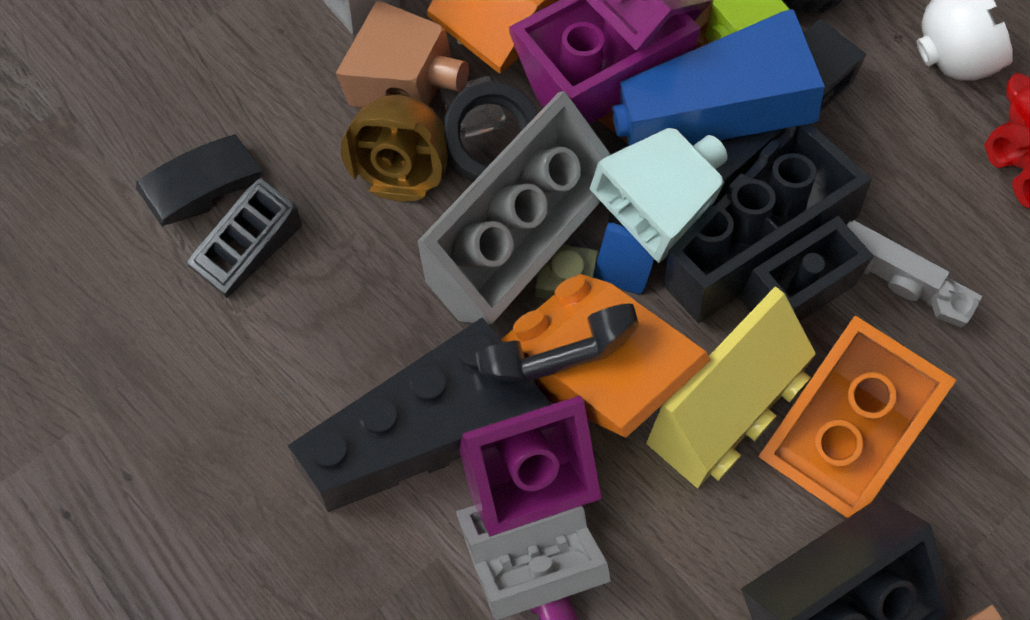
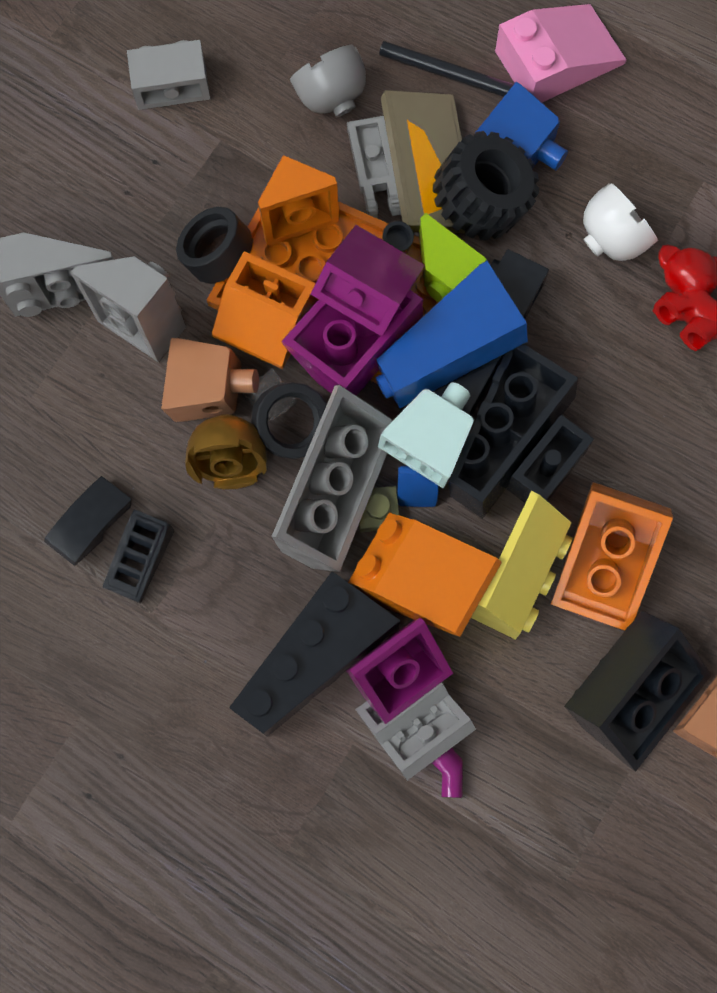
camera: 10 degrees left, 10 degrees up
(609, 331) = (363, 605): black bar -> none
(917, 277) = (626, 437): light grey hinge -> none

